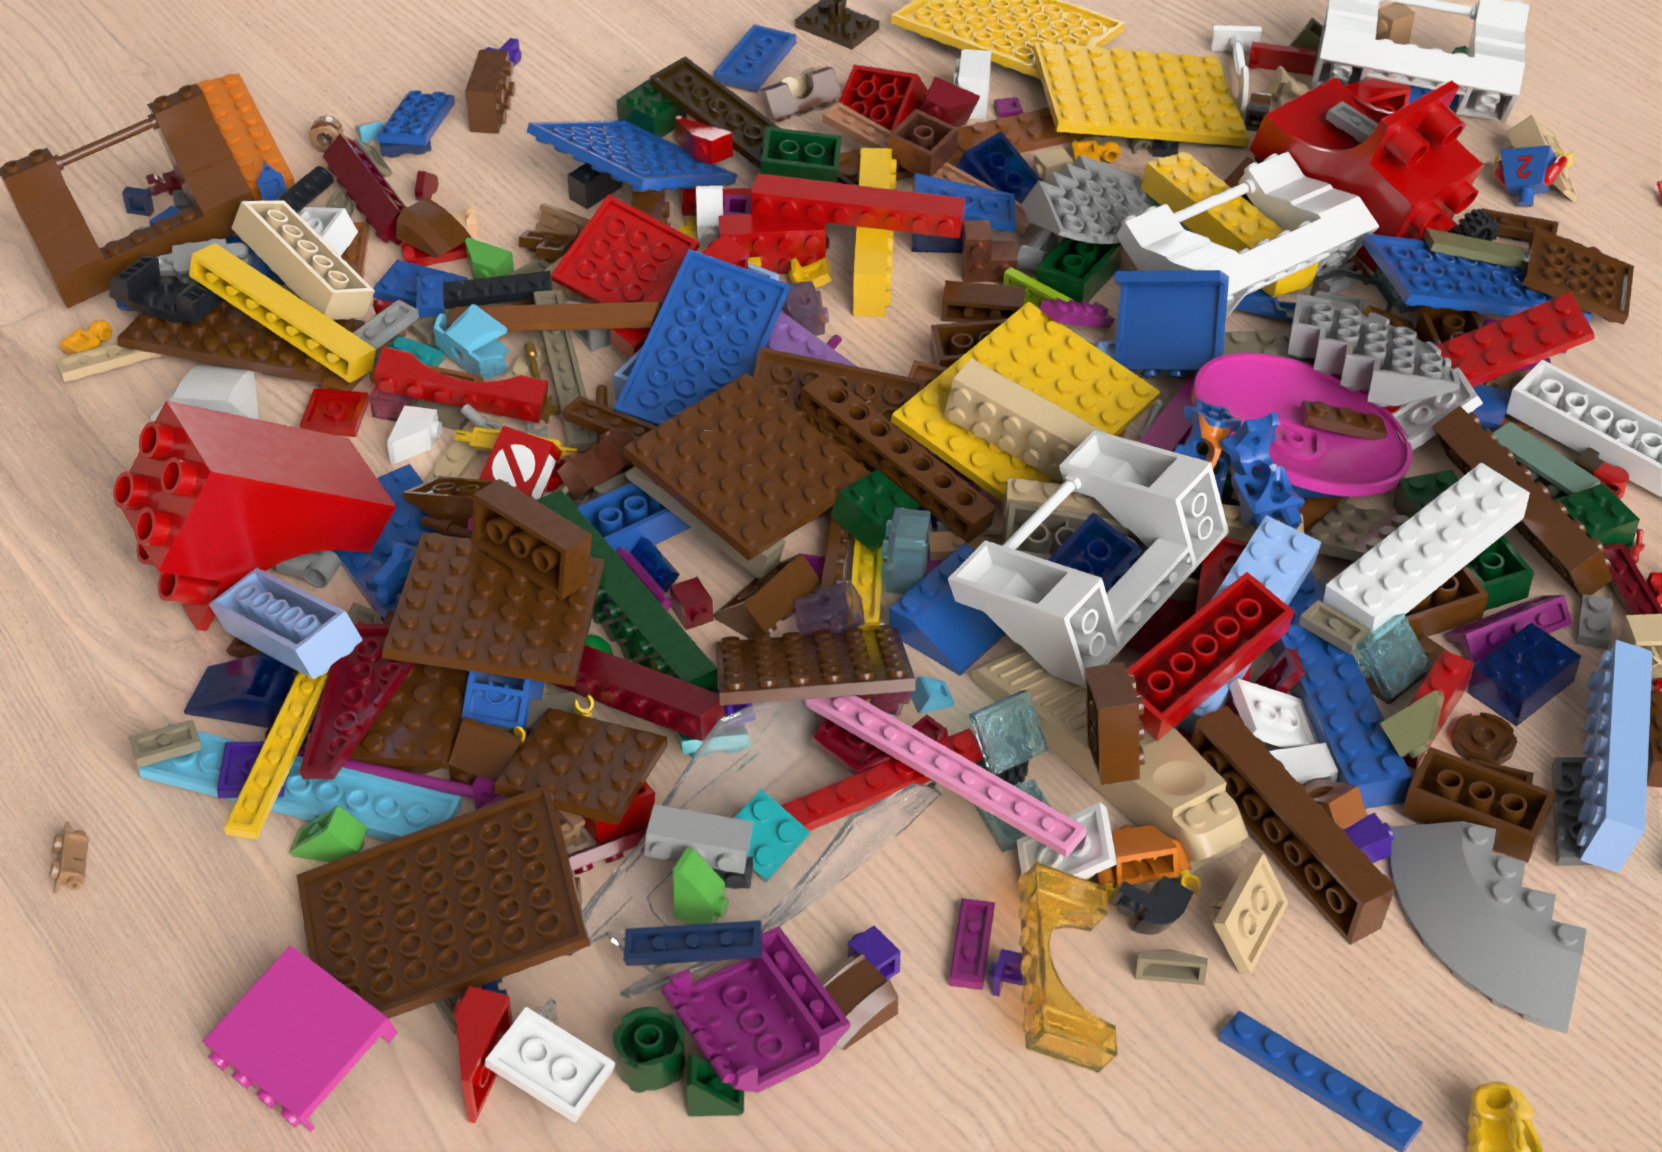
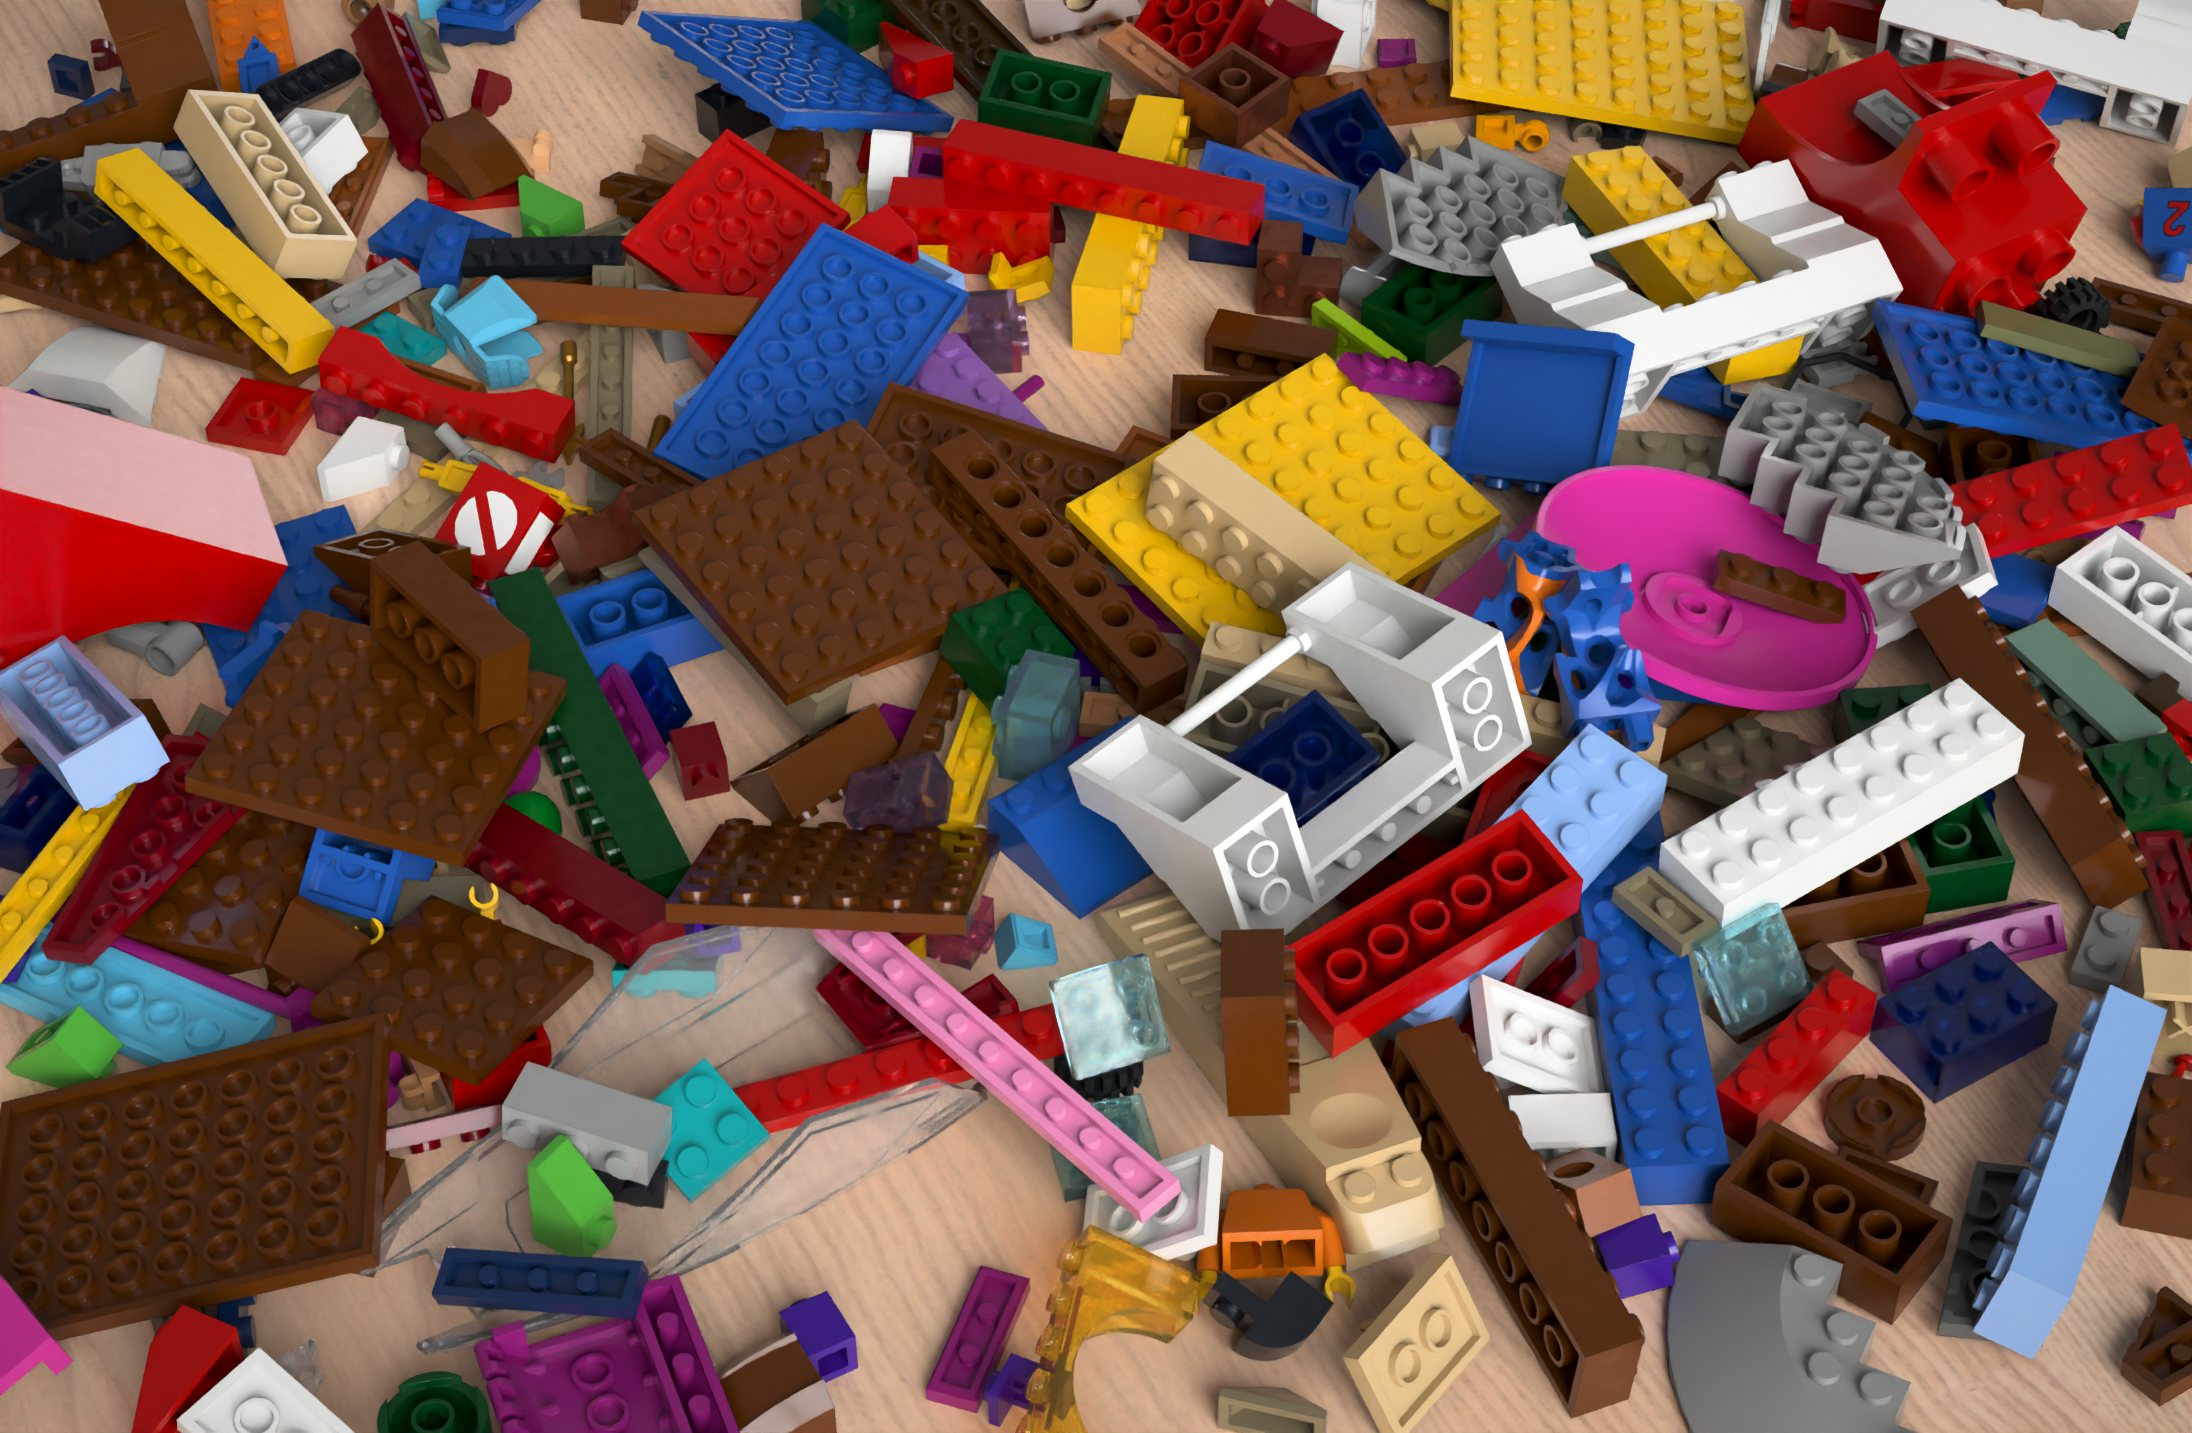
camera: 10 degrees right, 0 degrees up
(1415, 725) = (1749, 1082): olive slope -> none

